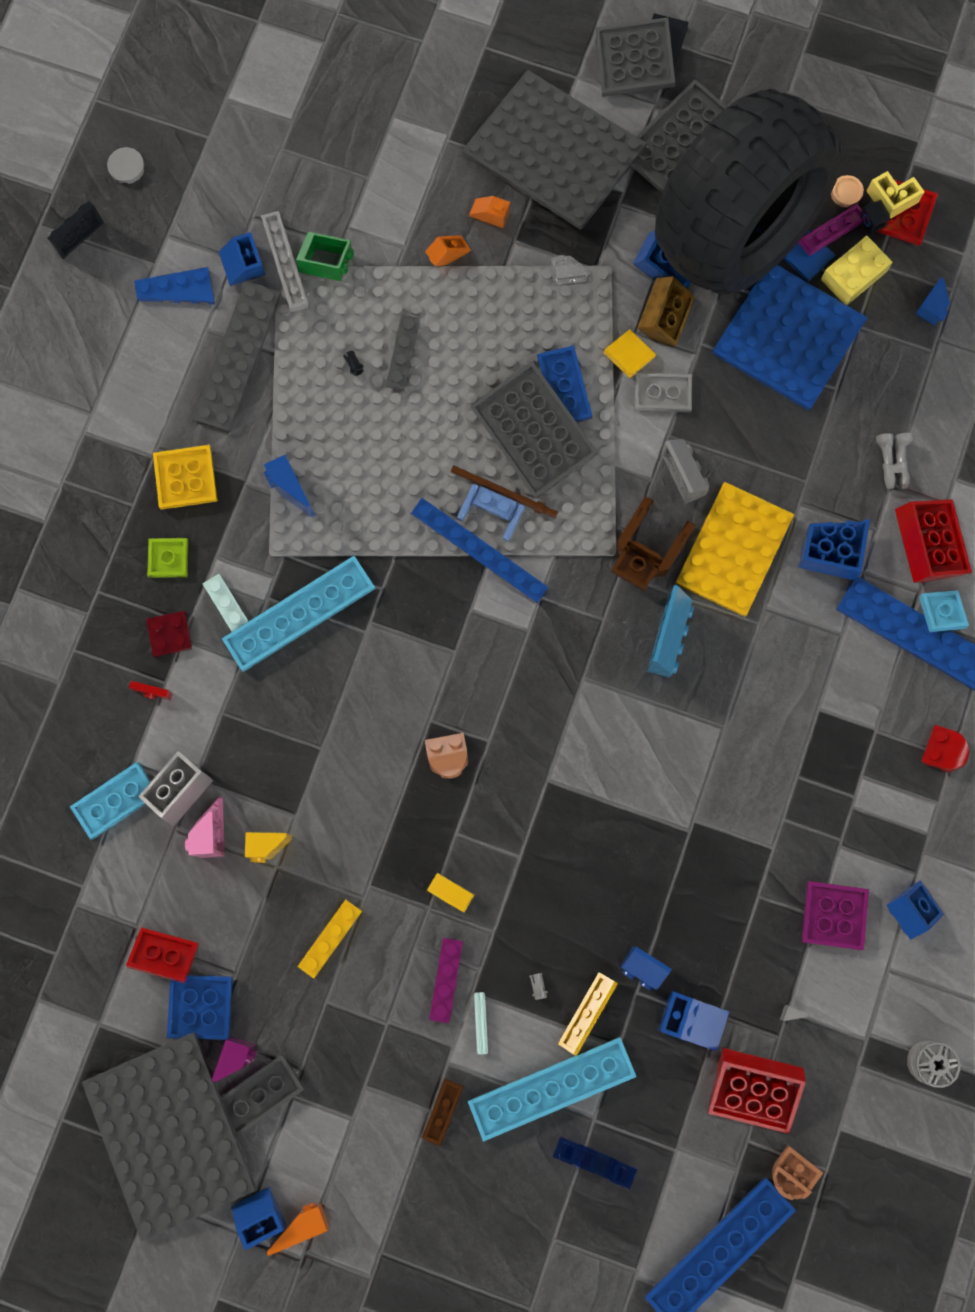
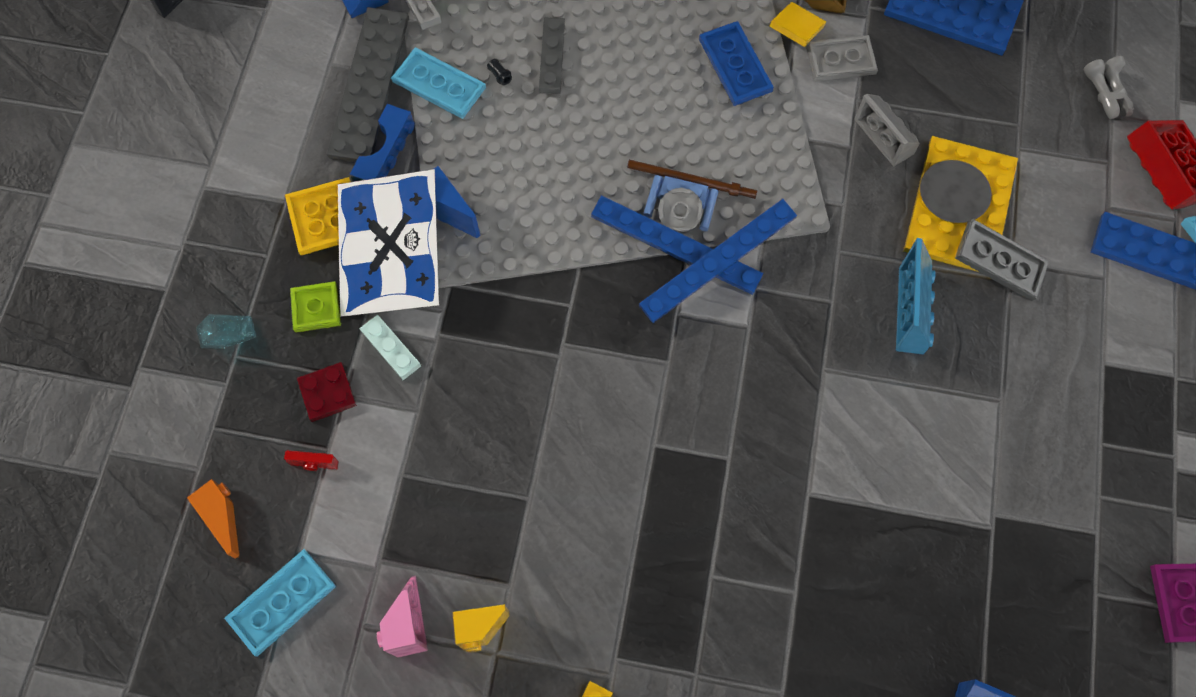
camera: 10 degrees left, 10 degrees down
(72, 723) = (217, 512): none -> orange slope
(91, 569) = (225, 331): none -> clear light blue slope
(175, 788) = (356, 573): light grey slope -> none
(185, 286) = (298, 25): blue wing -> none
(230, 441) = (396, 126): none -> blue arch
(234, 514) = (388, 243): none -> sticker
(298, 365) = (438, 83): none -> medium azure tile
(298, 613) = (476, 346): medium azure plate -> none
(447, 755) = (683, 481): nougat slope -> none
(450, 892) = (720, 650): yellow slope -> none
(488, 520) = (680, 210): none -> light grey tile
(511, 571) = (717, 260): none -> blue plate
(534, 430) = (713, 109): dark grey plate -> none
(638, 563) = (861, 231): reddish brown plate -> none
(730, 538) = (955, 191): none -> flat silver sticker
(753, 606) = (1002, 259): none -> dark grey tile
(835, 548) = (1076, 185): blue wedge -> none

